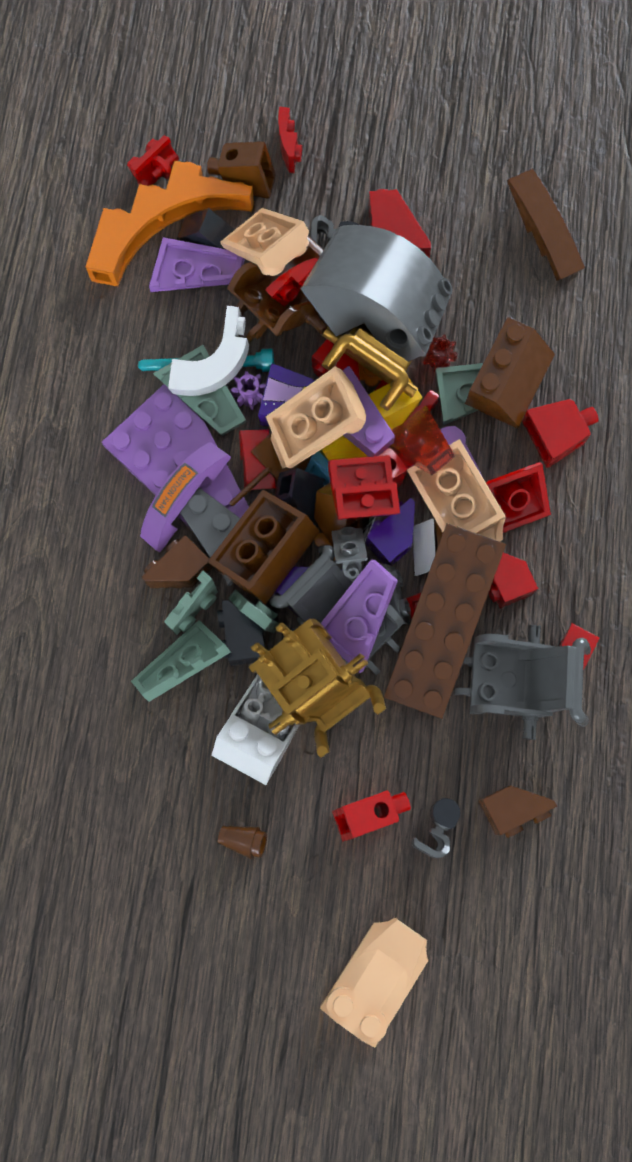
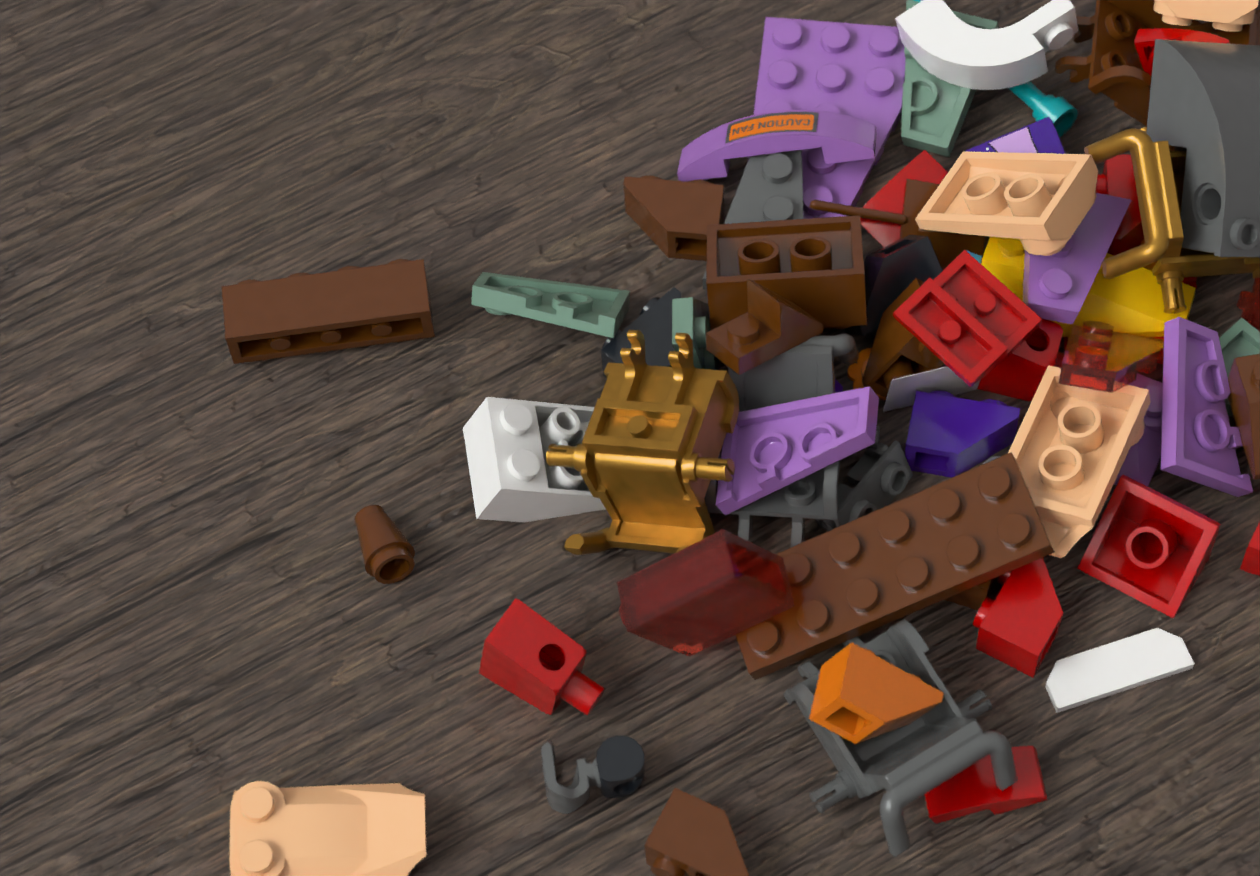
camera: 55 degrees right, 15 degrees down
(93, 775) = (327, 311): none -> reddish brown brick
(190, 605) = (641, 261): sand green wing -> none
(248, 383) = (990, 119): medium lavender gear -> none
(298, 585) = (762, 333): none -> reddish brown slope
(349, 550) = (866, 365): dark grey hinge -> none
(403, 714) = (705, 593): none -> clear red brick
(477, 430) = (1194, 414): none -> medium lavender wing
(513, 681) = (868, 696): none -> orange slope
(555, 557) = (1116, 668): none -> white piece

